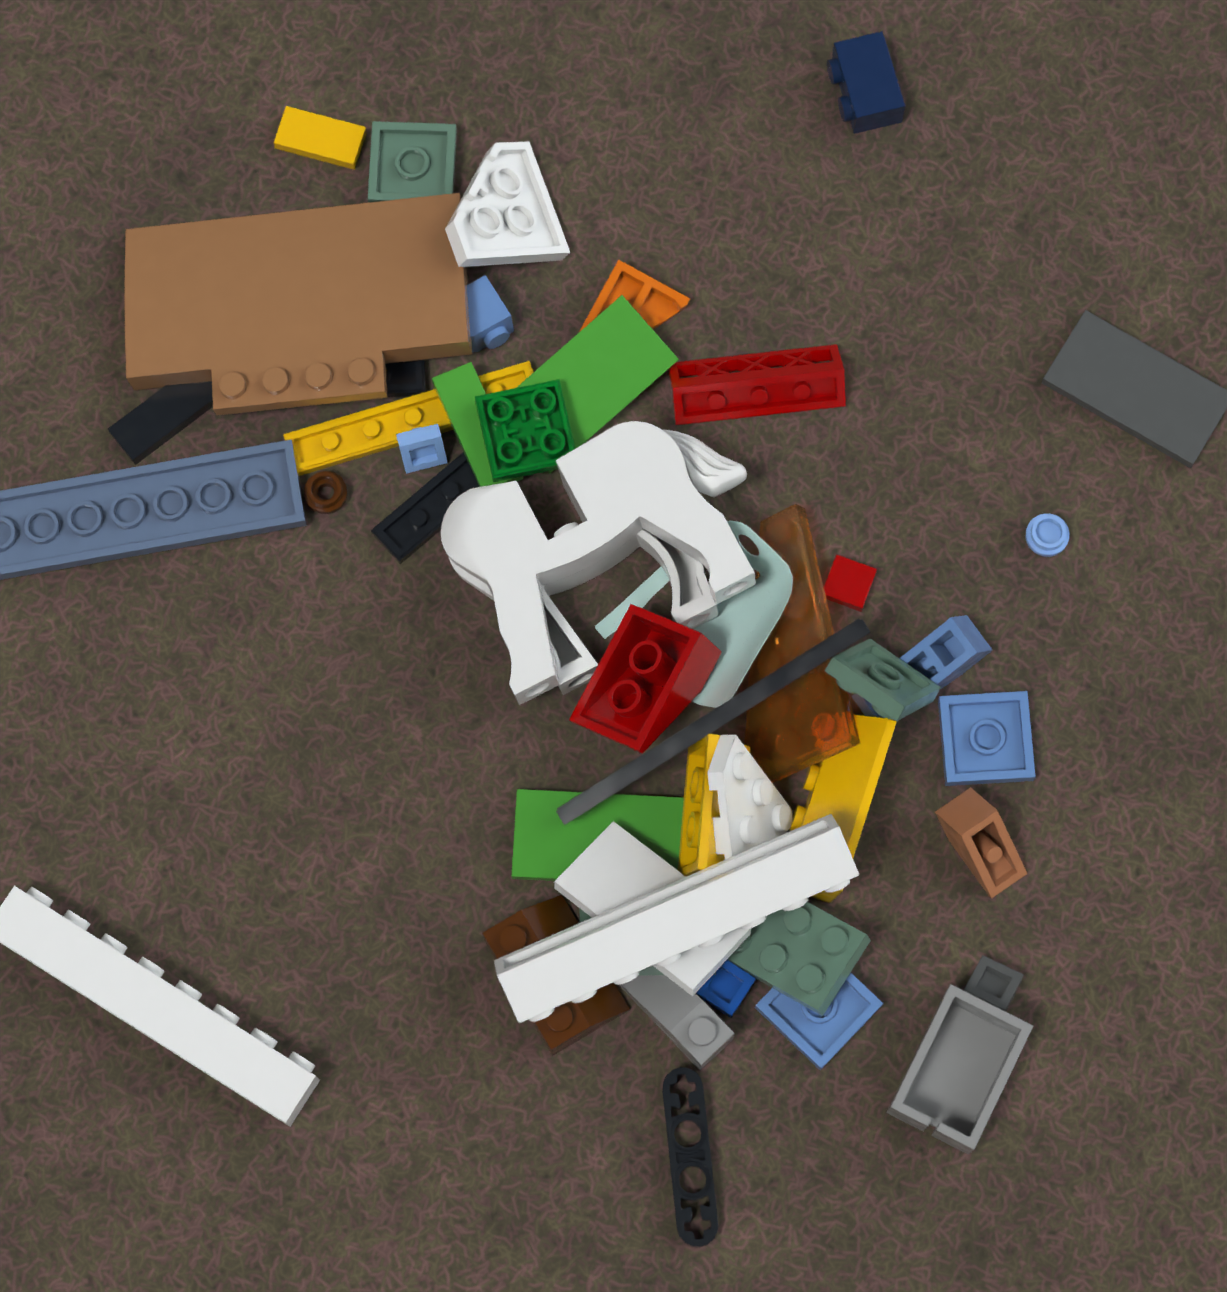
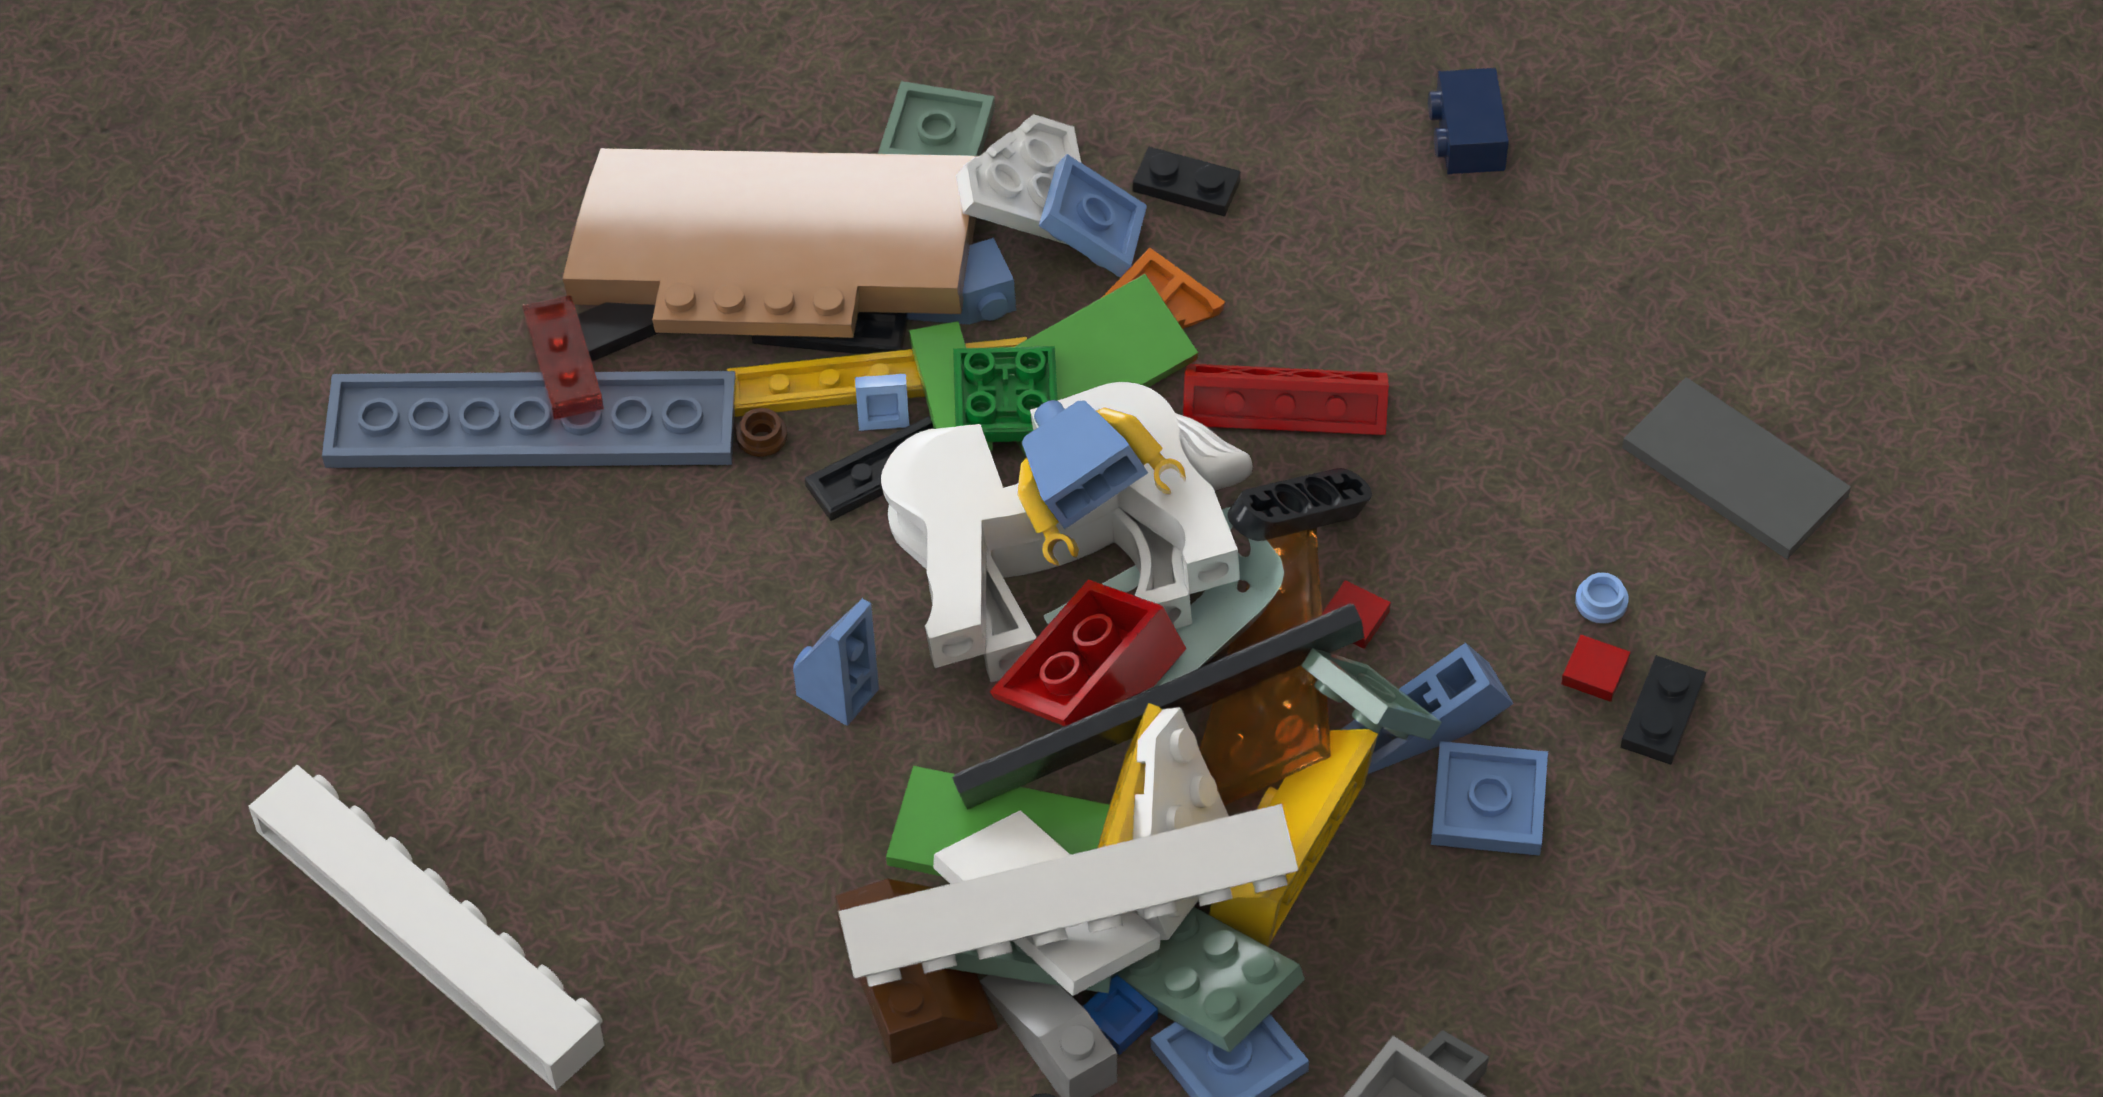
camera: 10 degrees right, 20 degrees down
(143, 452) = (562, 357): none -> clear red tile
(320, 137) = (839, 93): yellow tile -> none
(438, 716) = (841, 667): none -> medium blue slope
(565, 237) = (1093, 215): none -> medium blue plate
(612, 519) = (1081, 462): none -> medium blue torso
(635, 179) = (1186, 181): none -> black plate
(792, 501) = (1299, 504): none -> black beam
(981, 841) = (1464, 905): nougat slope -> none
(1052, 600) = (1595, 668): none -> red tile
(1112, 630) = (1663, 710): none -> black plate

